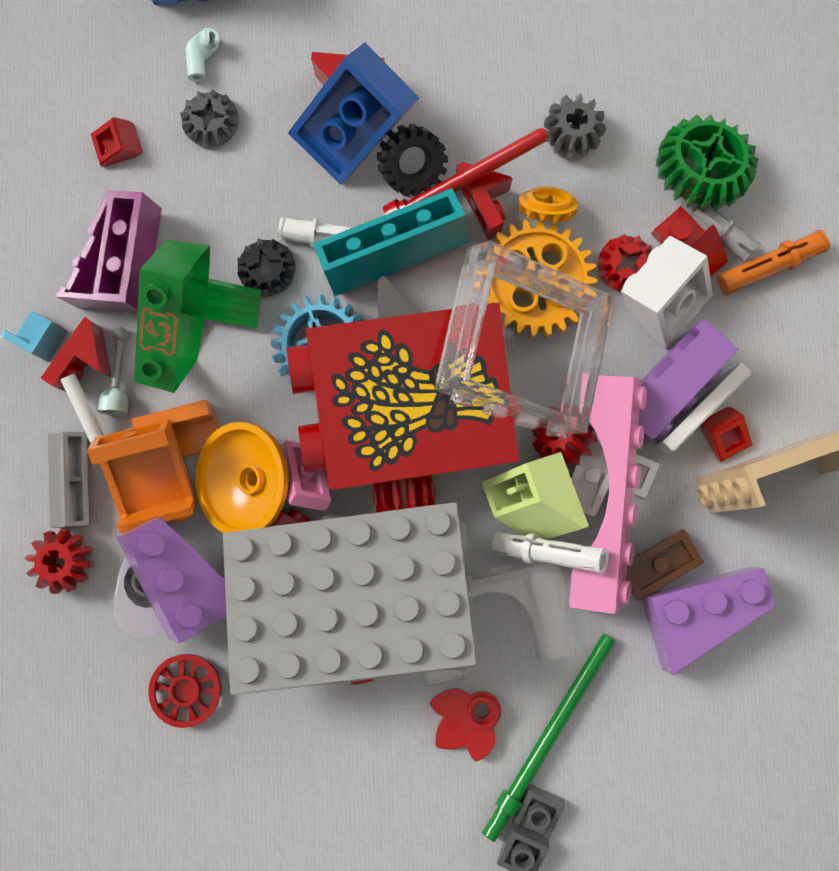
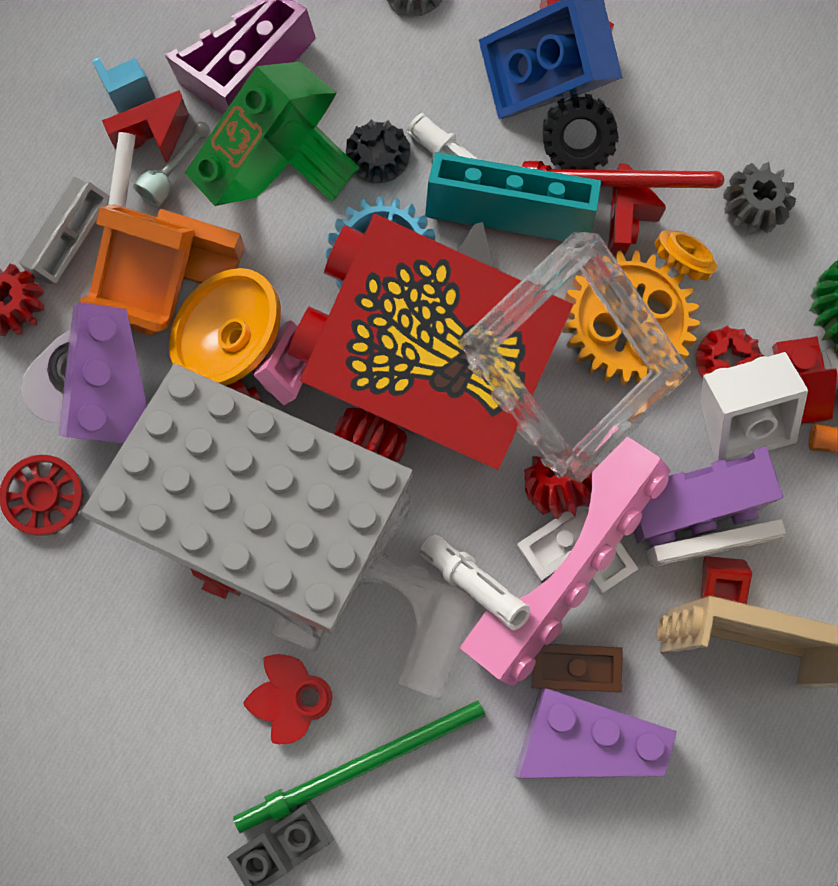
camera: 25 degrees right, 5 degrees down
(537, 498) = (494, 520): yellowish green slope -> none

